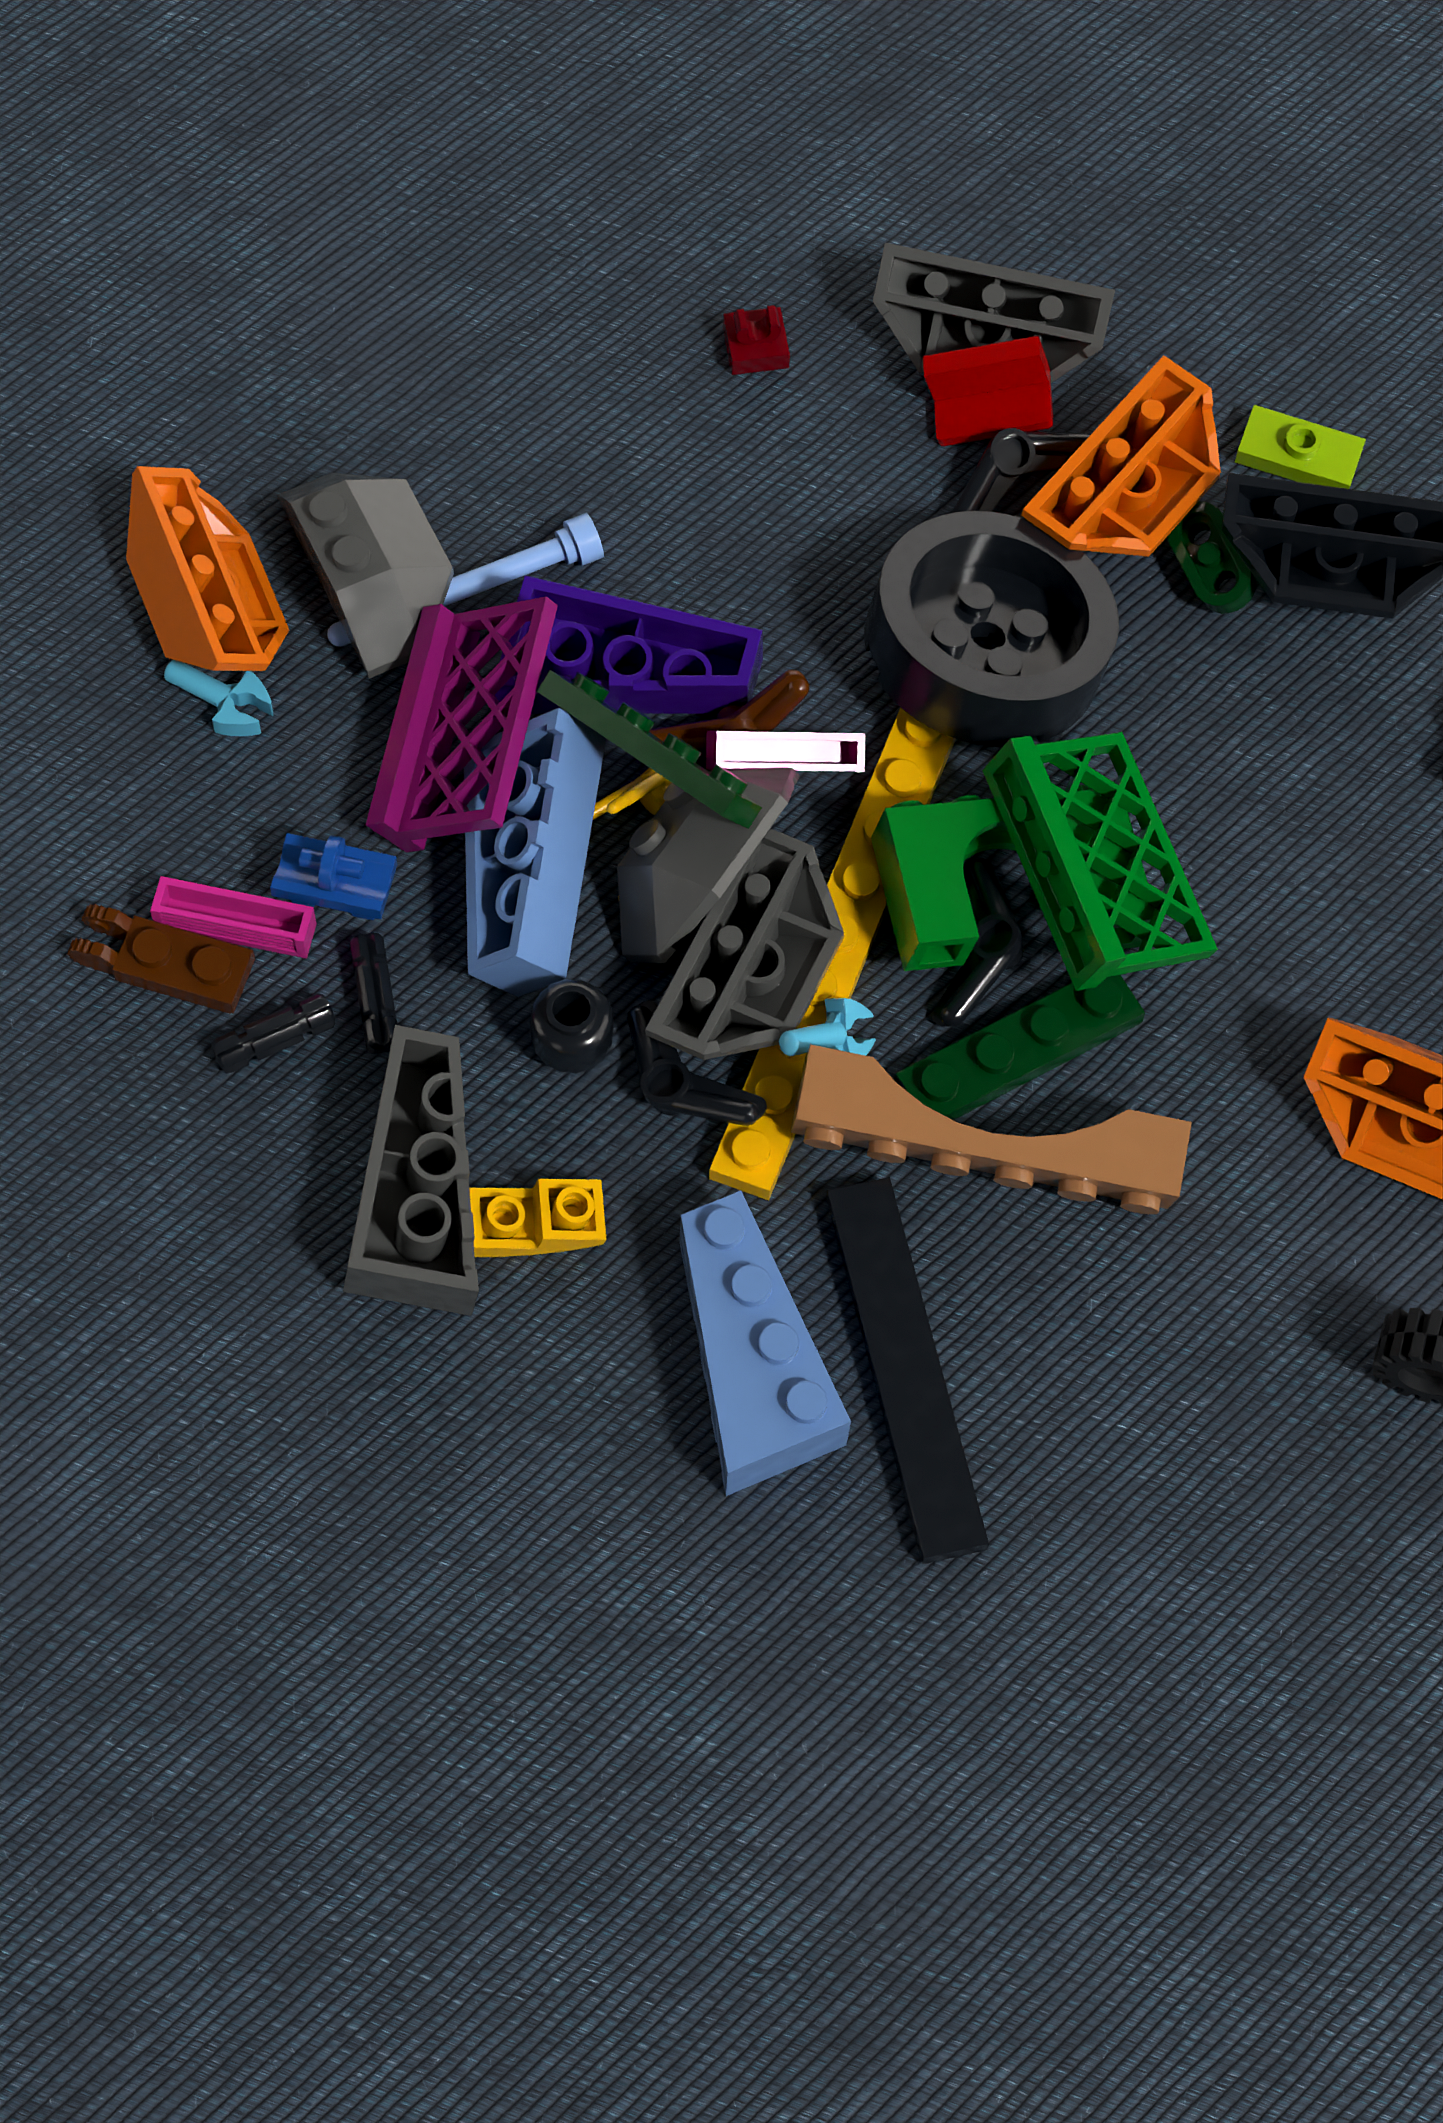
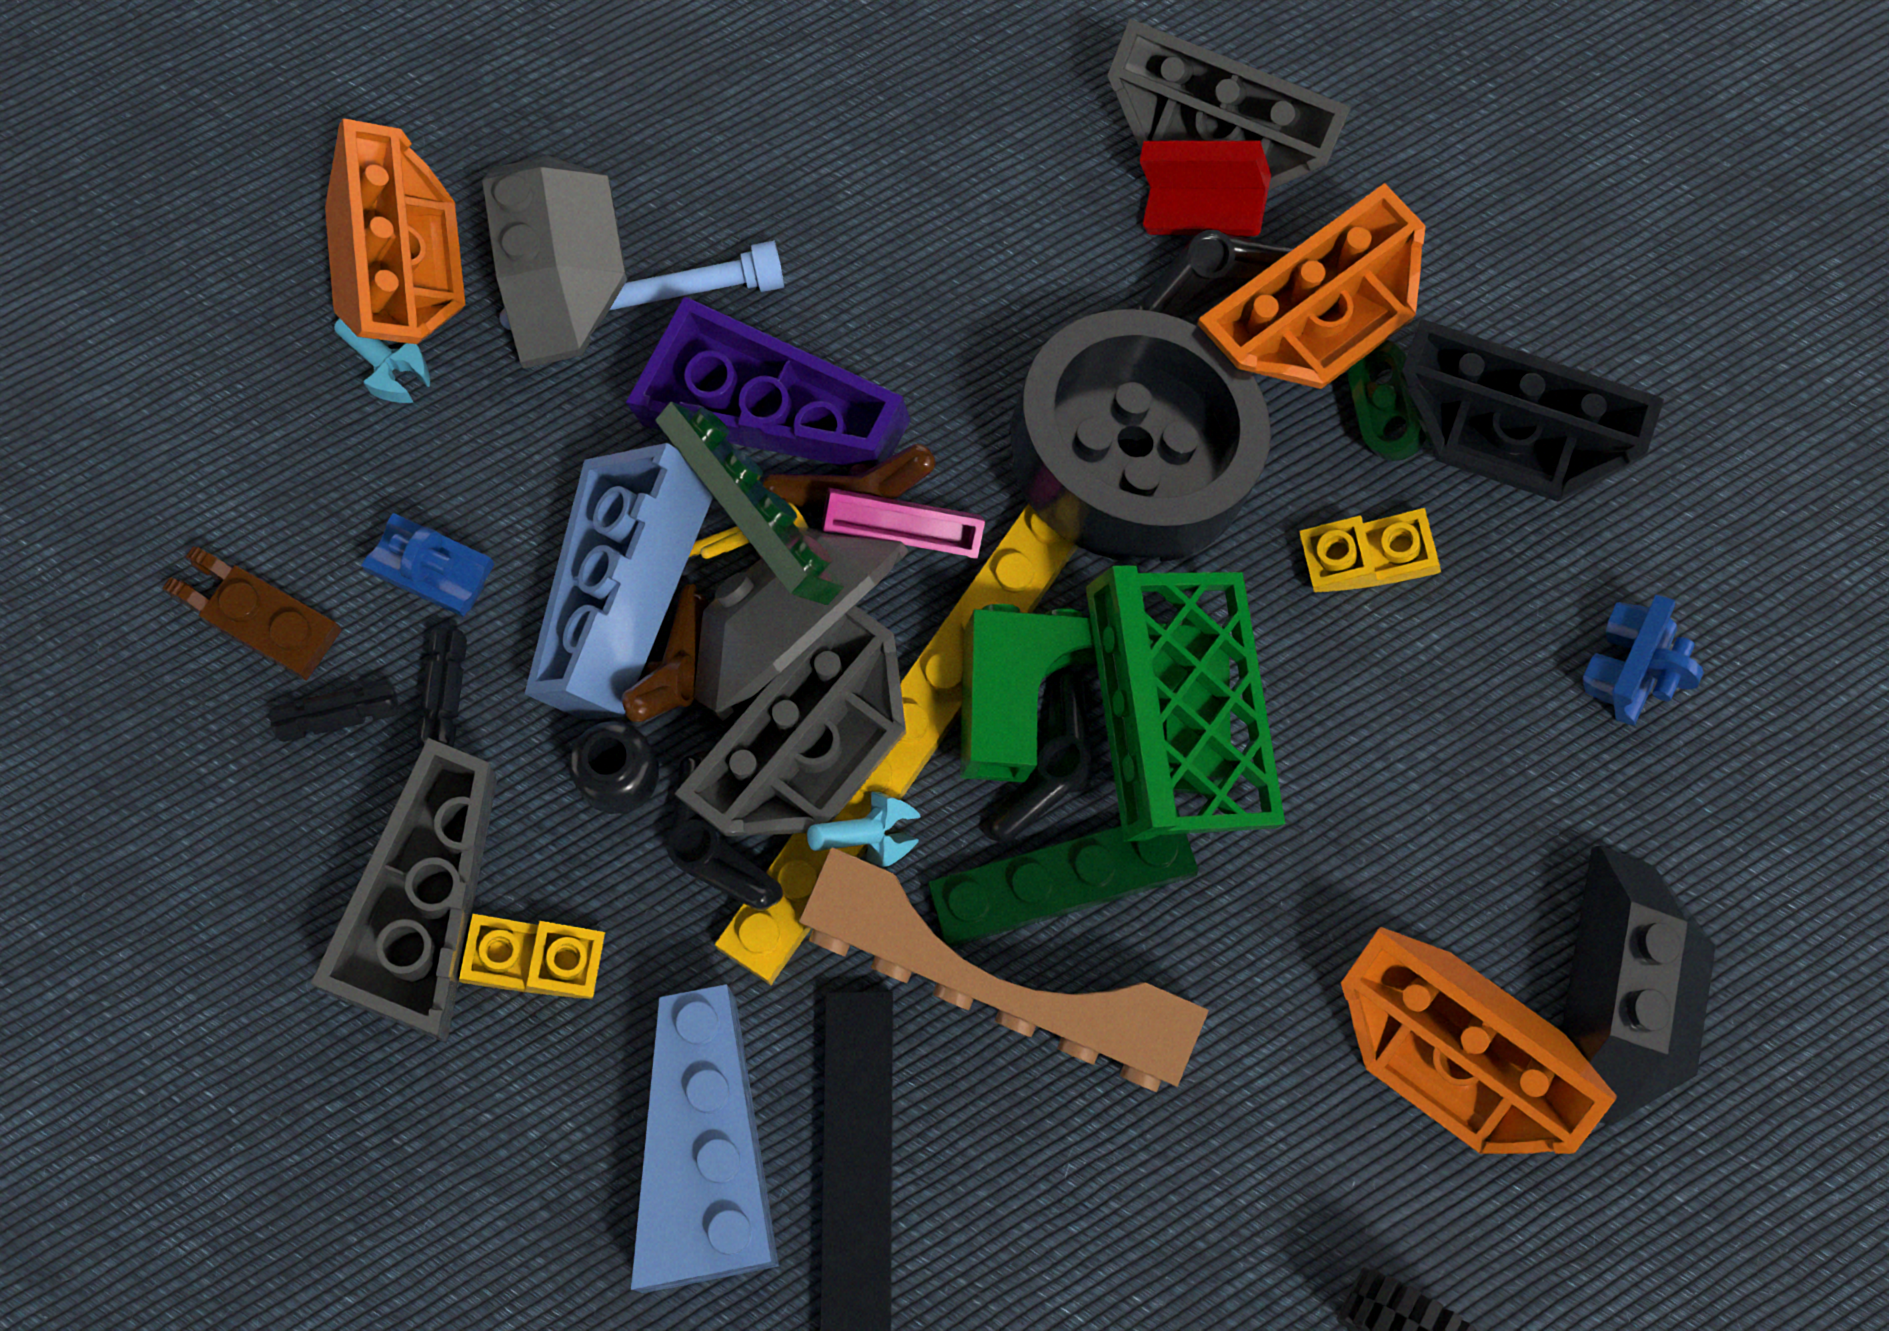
camera: 20 degrees right, 5 degrees up
(235, 916) = (326, 585): dark pink piece -> none
(434, 712) = (555, 439): magenta fence -> none
(599, 940) = (663, 680): none -> reddish brown piece
(756, 340) = (990, 95): dark red tile -> none
(1229, 701) = (1370, 553): none -> yellow slope
(1299, 449) = (1507, 304): lime plate -> none

